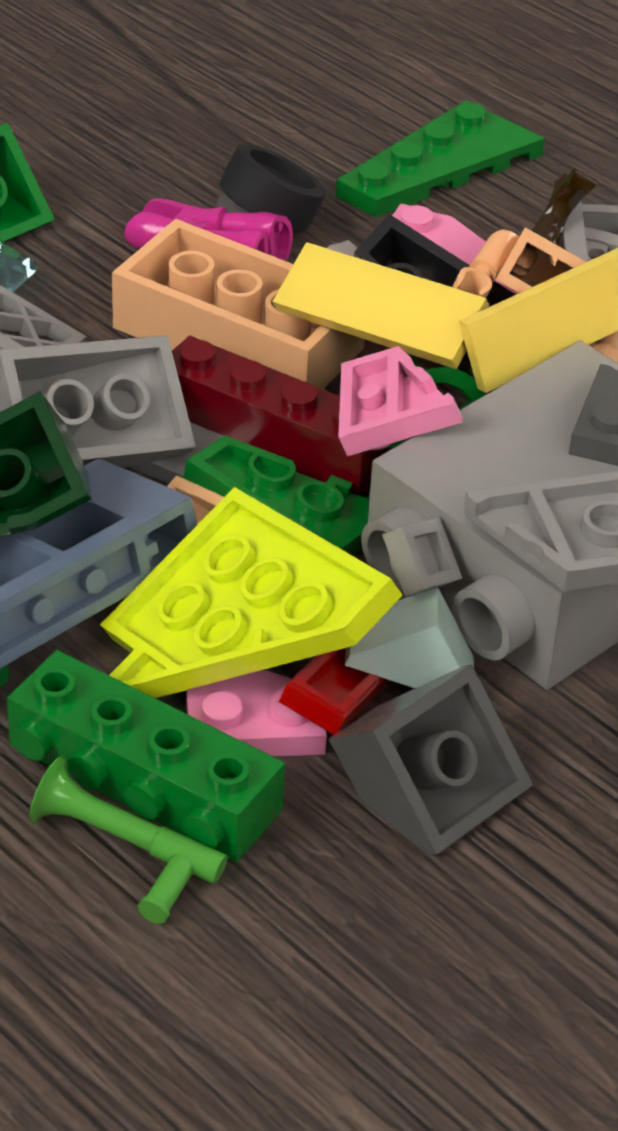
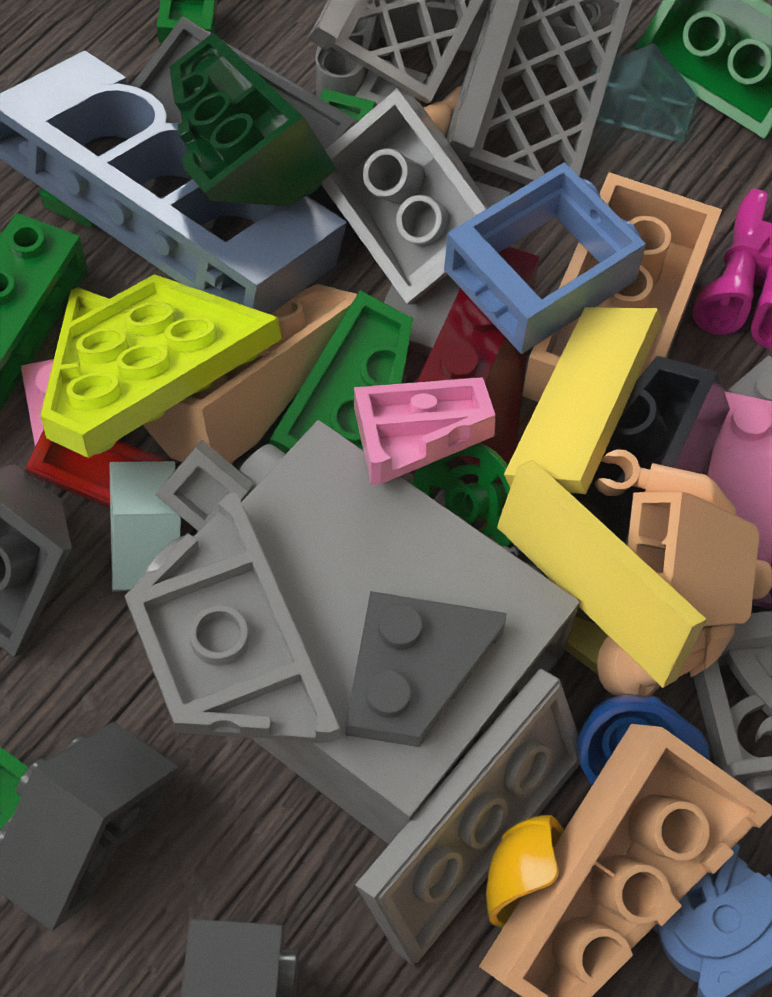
camera: 80 degrees right, 20 degrees up
(231, 341) = (503, 295): none -> medium blue window

